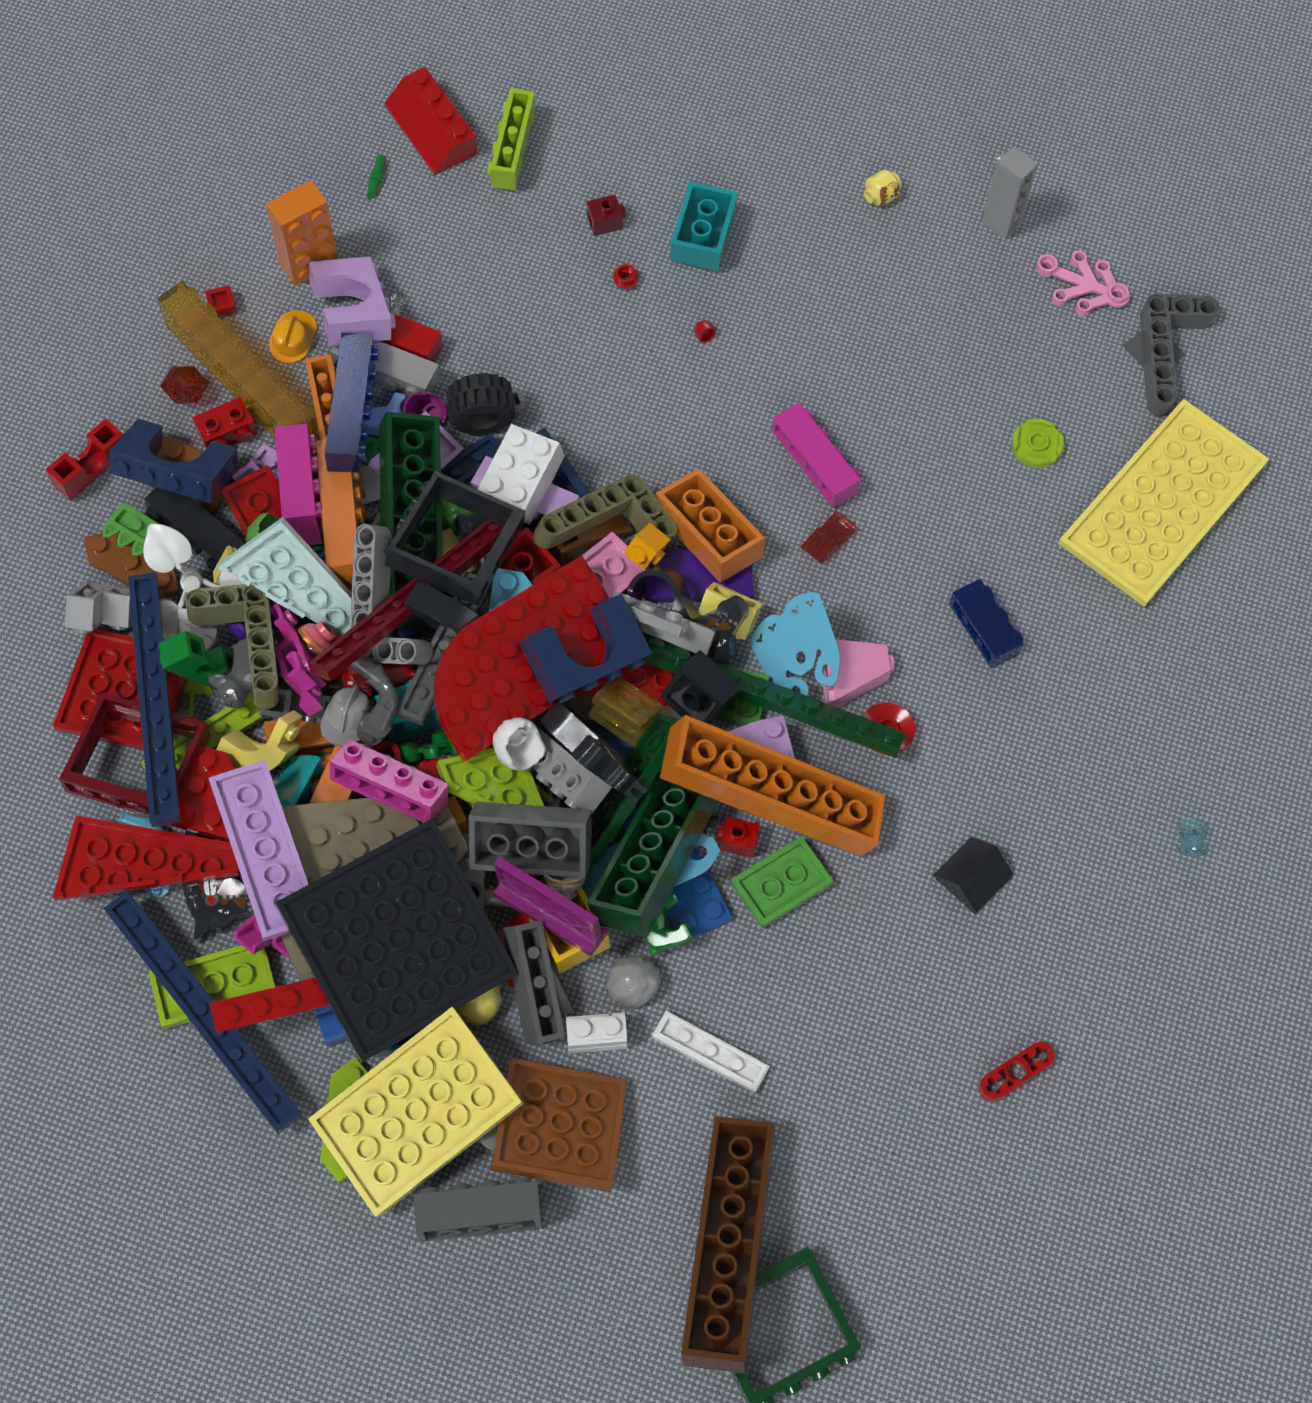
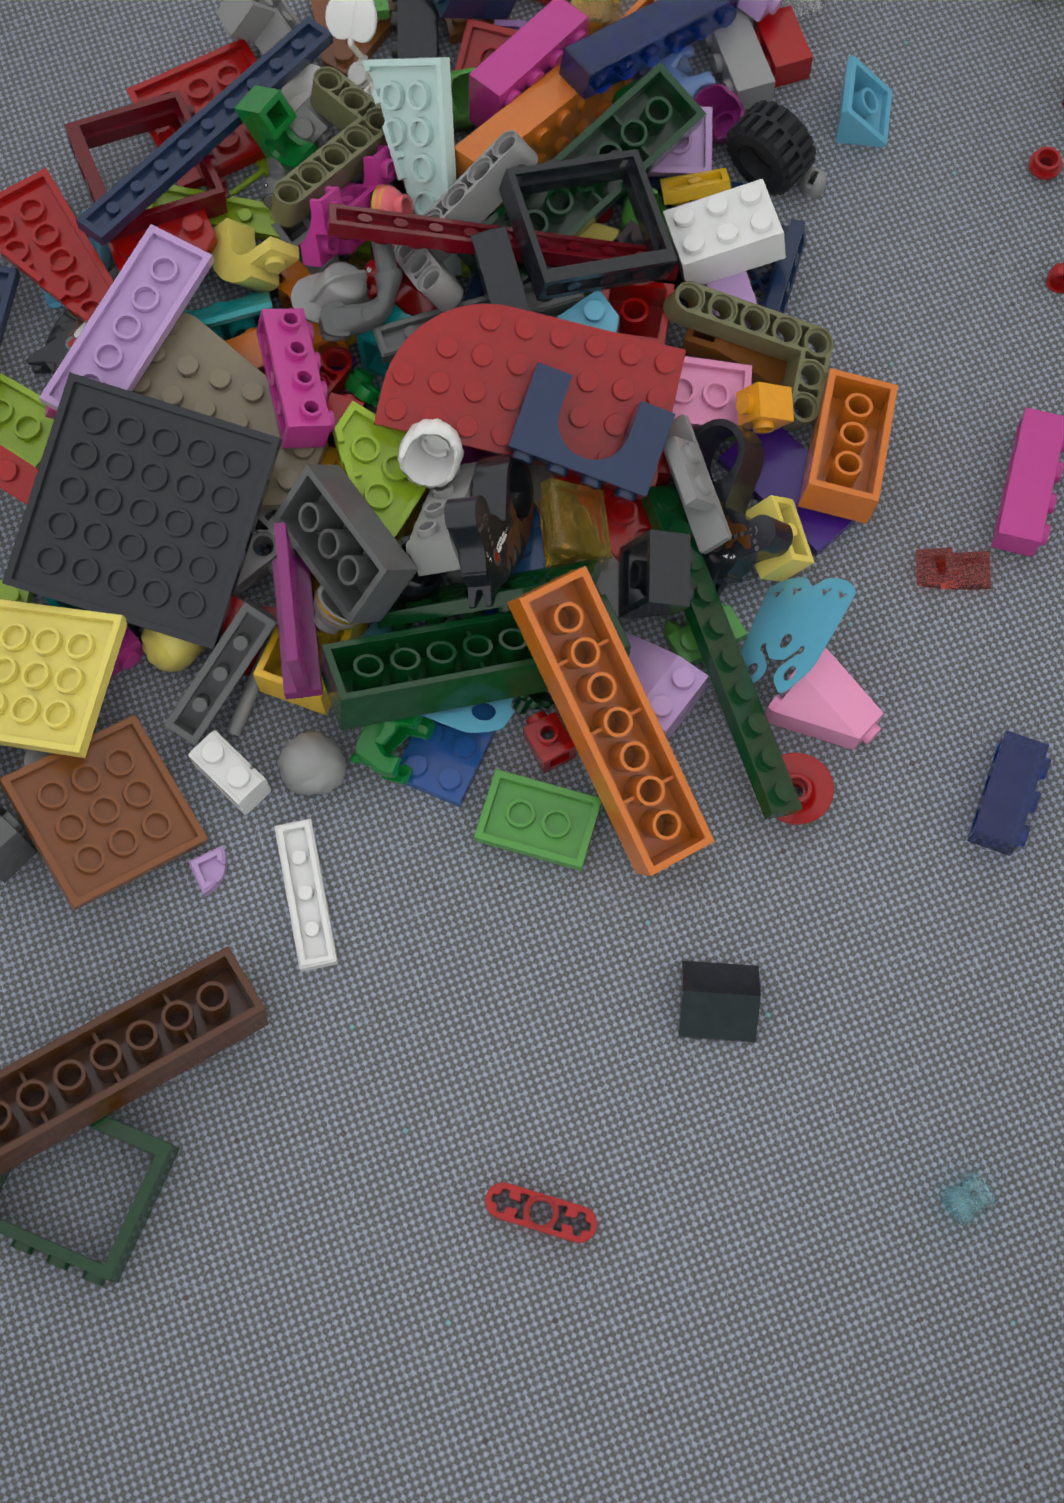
camera: 55 degrees right, 5 degrees up
(467, 460) = (694, 186): none -> yellow plate
(494, 336) = (863, 107): none -> medium azure slope
(644, 1096) = (210, 869): none -> lavender tile

